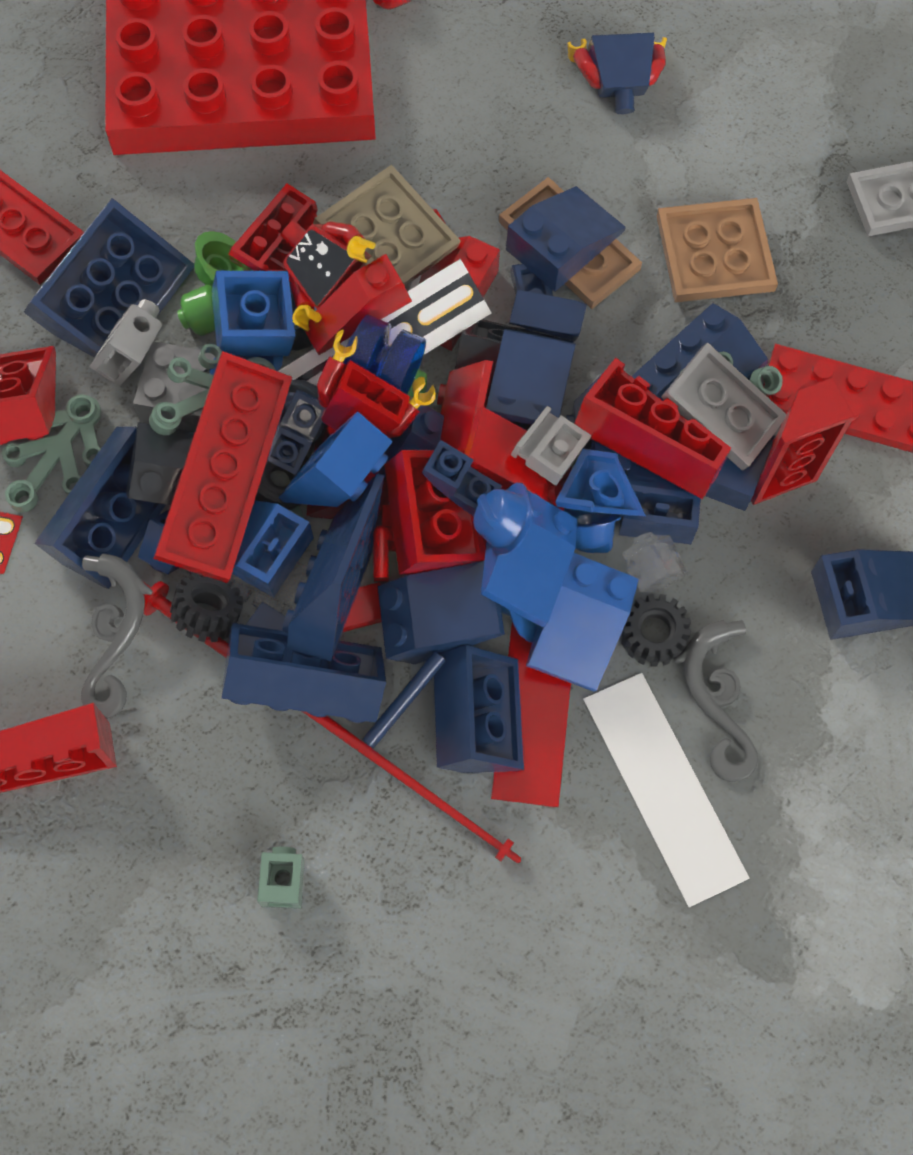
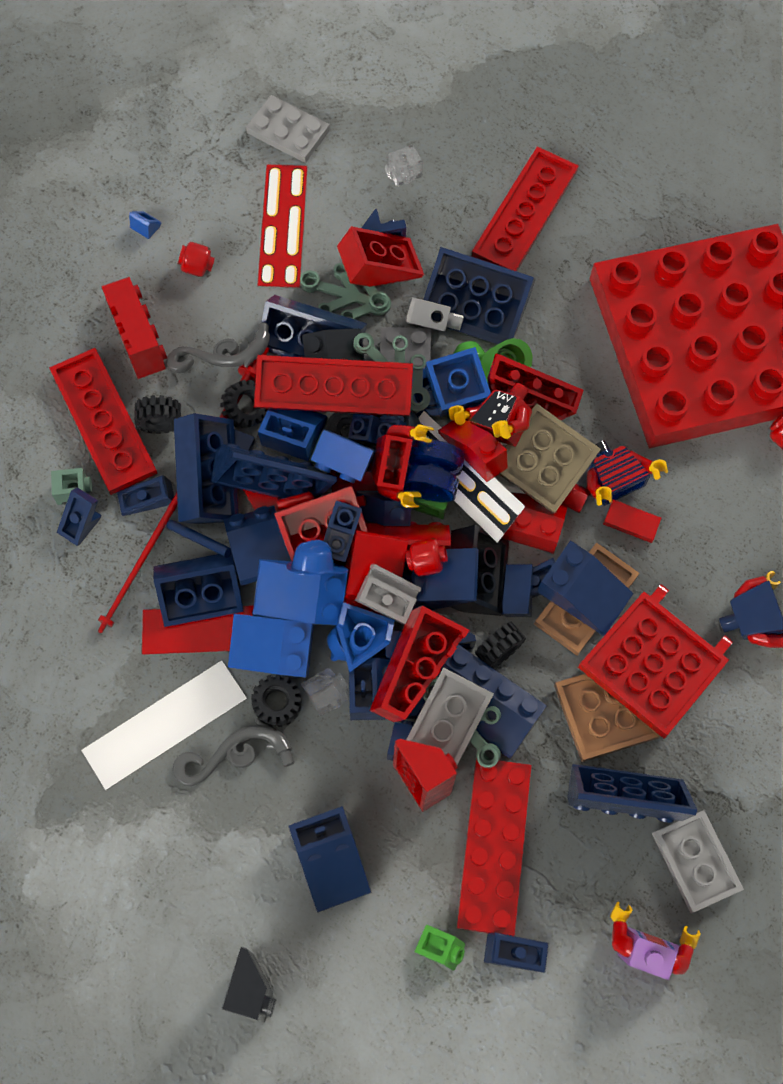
camera: 80 degrees right, 0 degrees up
(177, 822) = (103, 421): none -> red plate
(196, 732) = (156, 414): none -> black tyre
(317, 774) = (146, 496): none -> dark blue slope
(336, 871) = (78, 516): none -> dark blue slope
(415, 161) = (620, 473): none -> torso
(473, 175) = (632, 521): none -> red tile
(508, 388) = (426, 557): none -> red head
(624, 339) = (500, 645): none -> black tyre
(667, 182) = (654, 663): none -> red plate
(835, 234) = (630, 793): none -> dark blue slope

